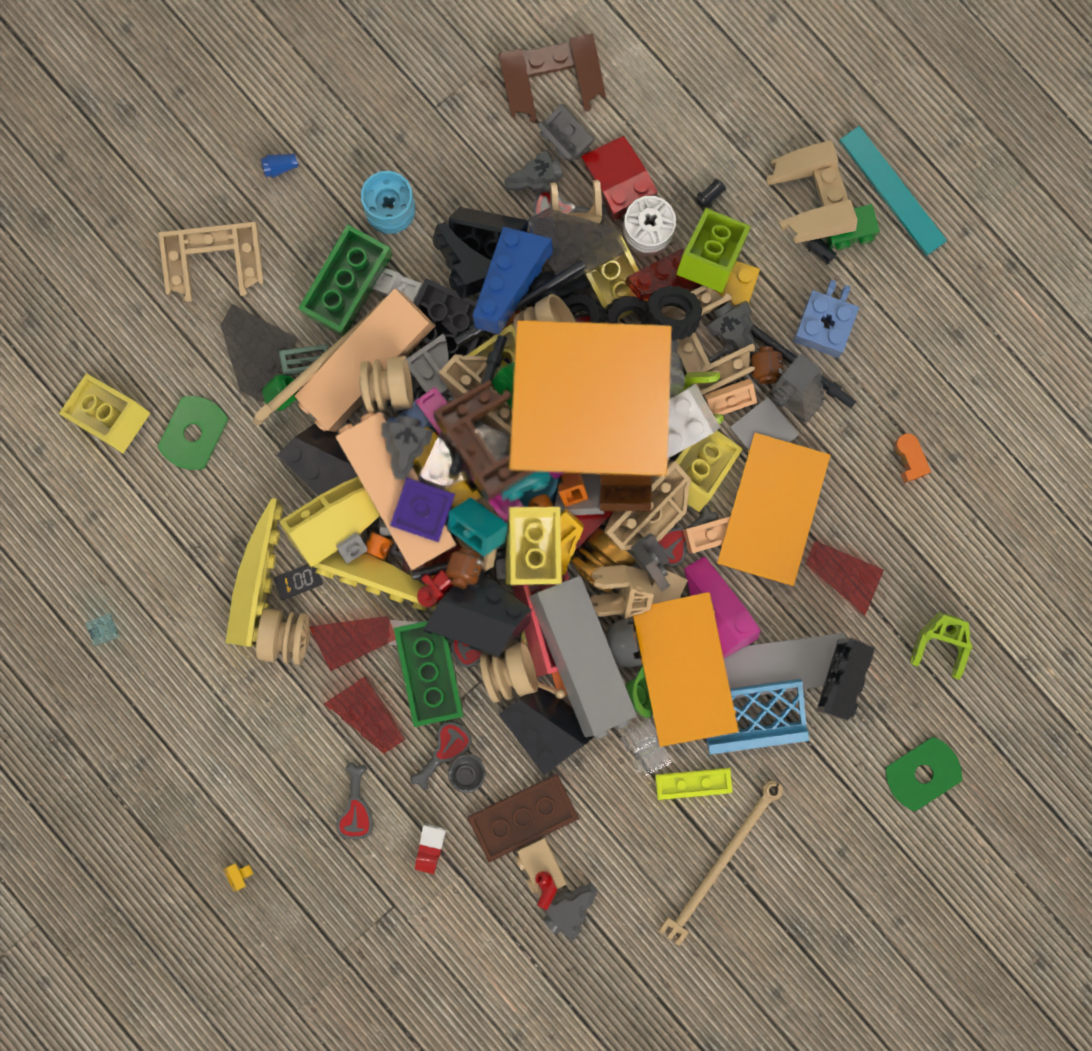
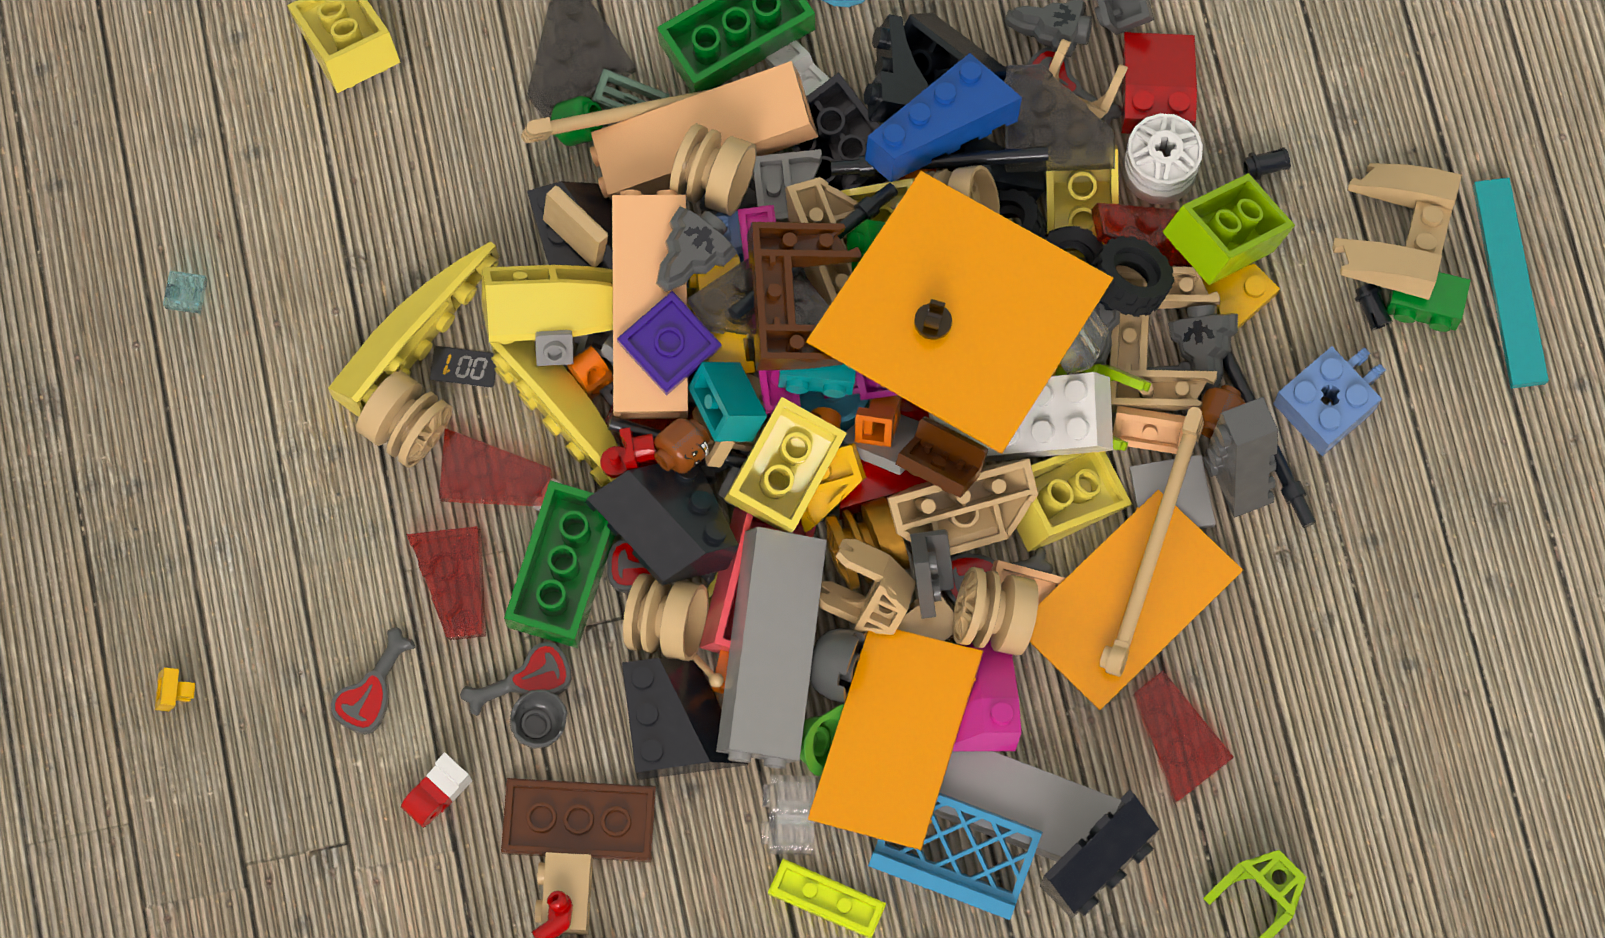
camera: 30 degrees right, 10 degrees down
(188, 412) = (424, 142): green piece -> none
(321, 465) = (575, 226): none -> tan tile
(580, 415) = (933, 320): none -> dark brown plate
(704, 564) = (995, 611): none -> tan wheel
(786, 551) = (1115, 657): none -> tan hinge
(912, 456) = (1352, 622): orange leg -> none

